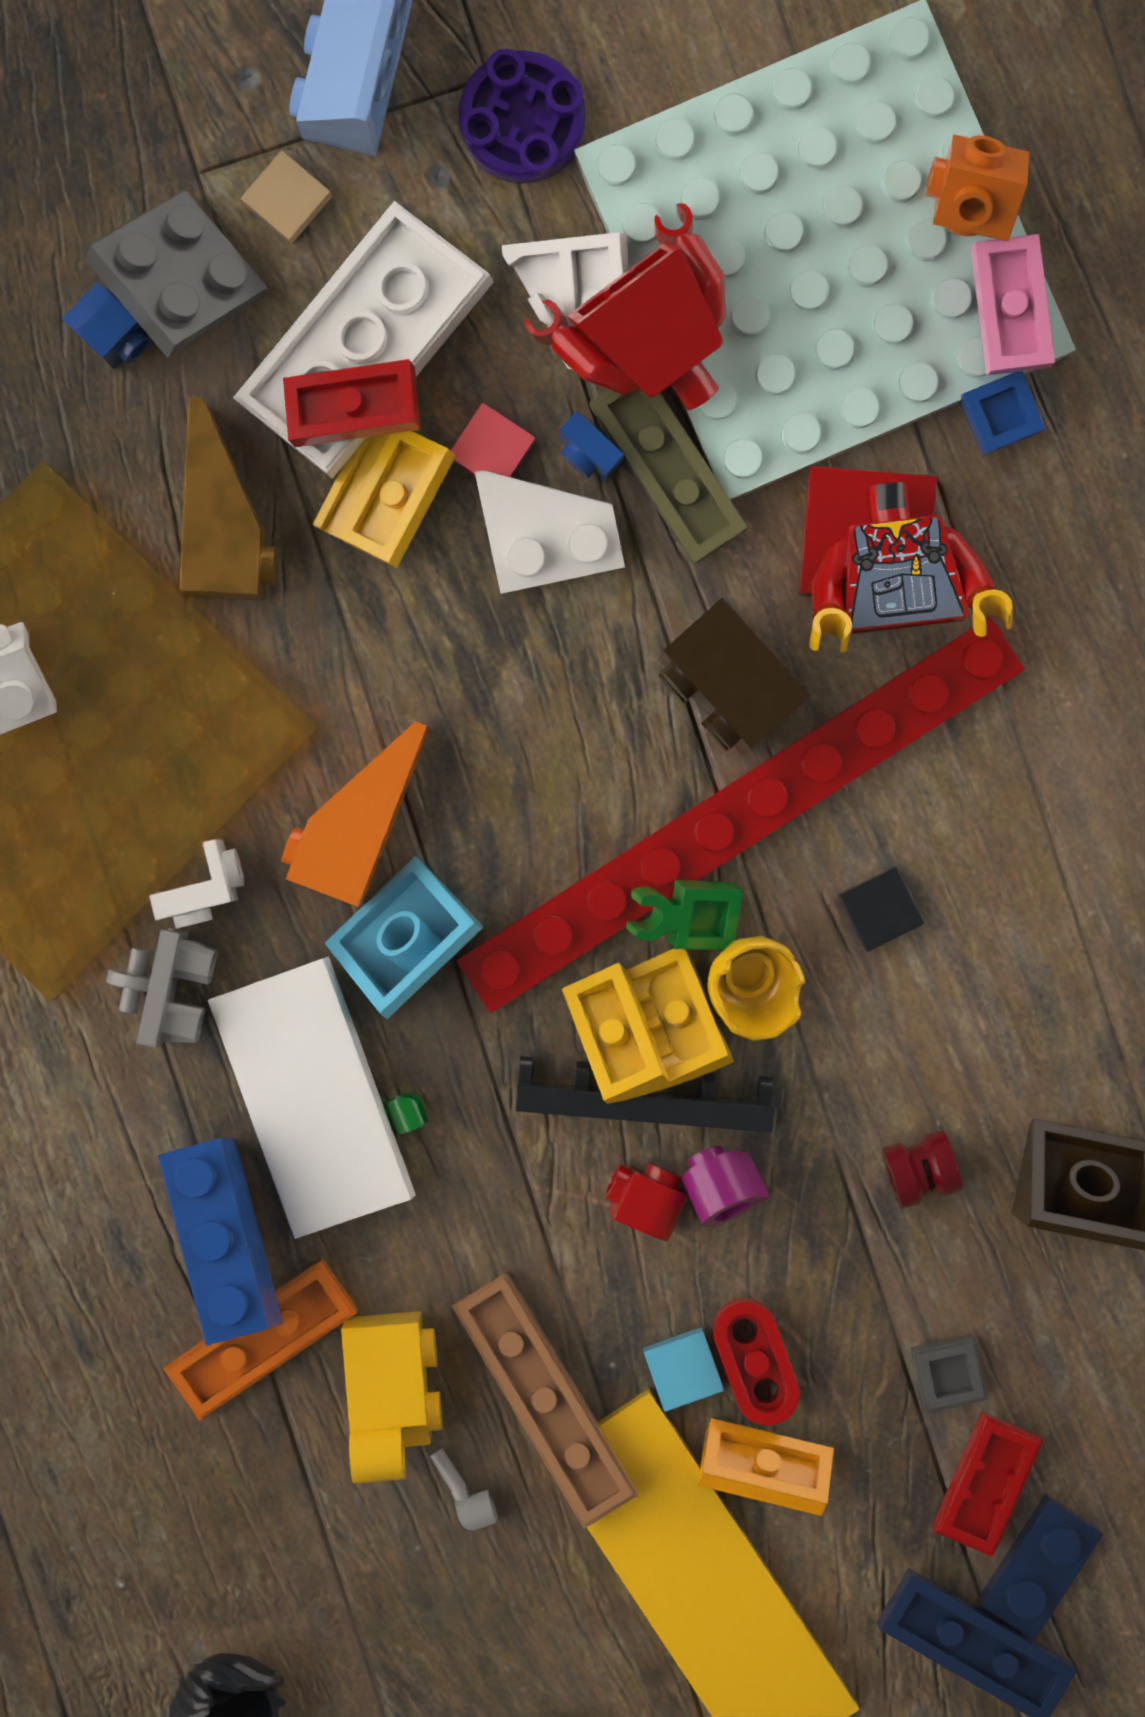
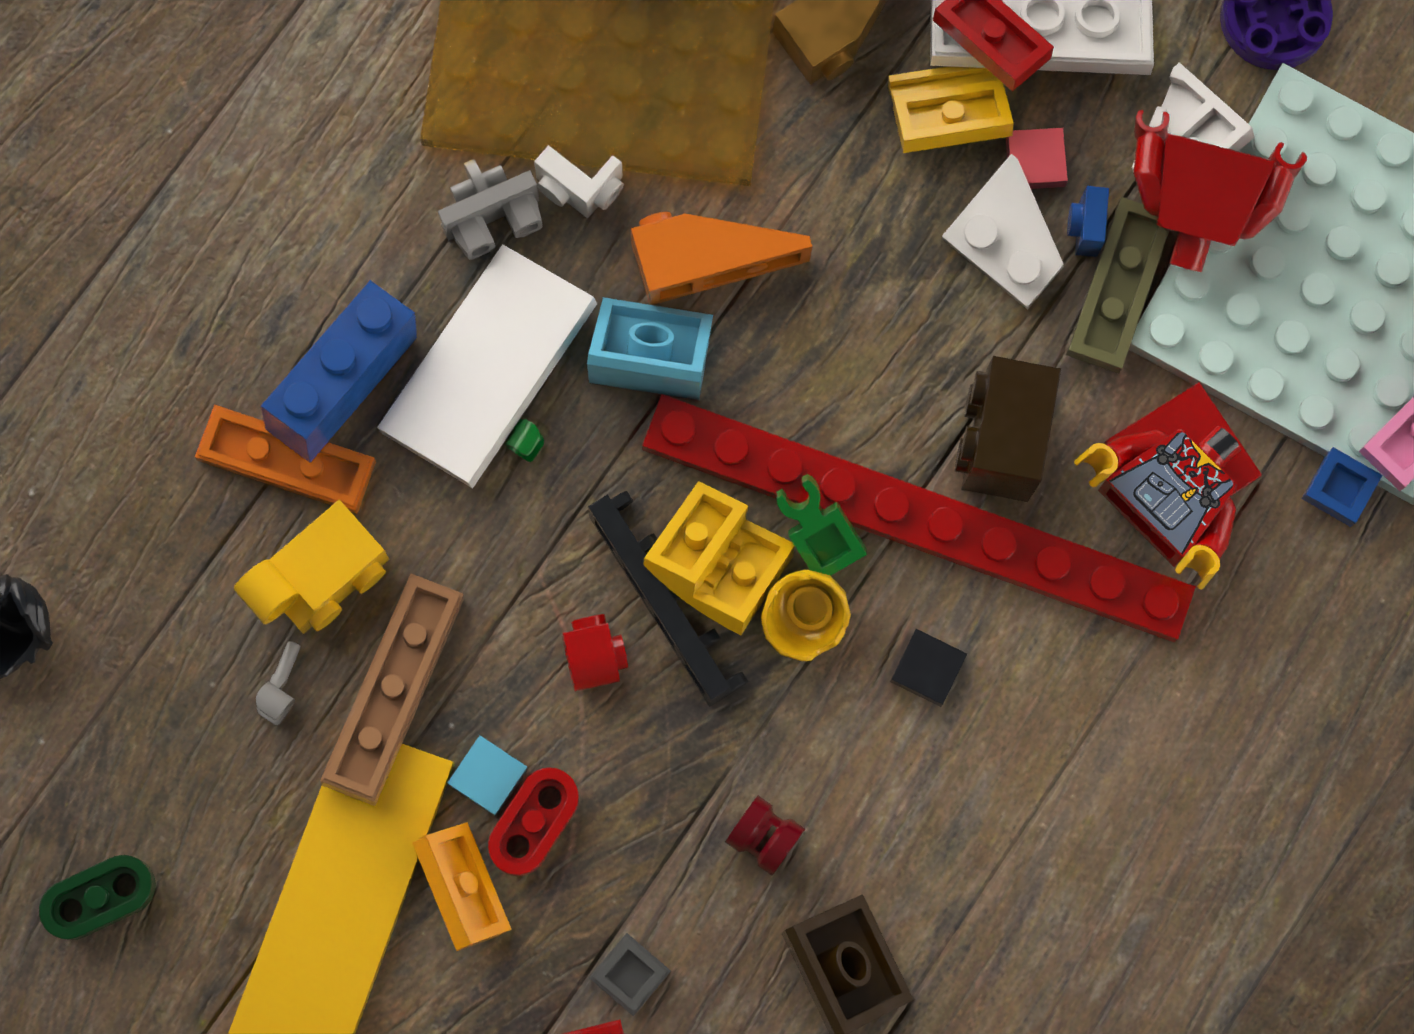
camera: 50 degrees right, 10 degrees down
(723, 1185) = (644, 698): magenta plate -> none

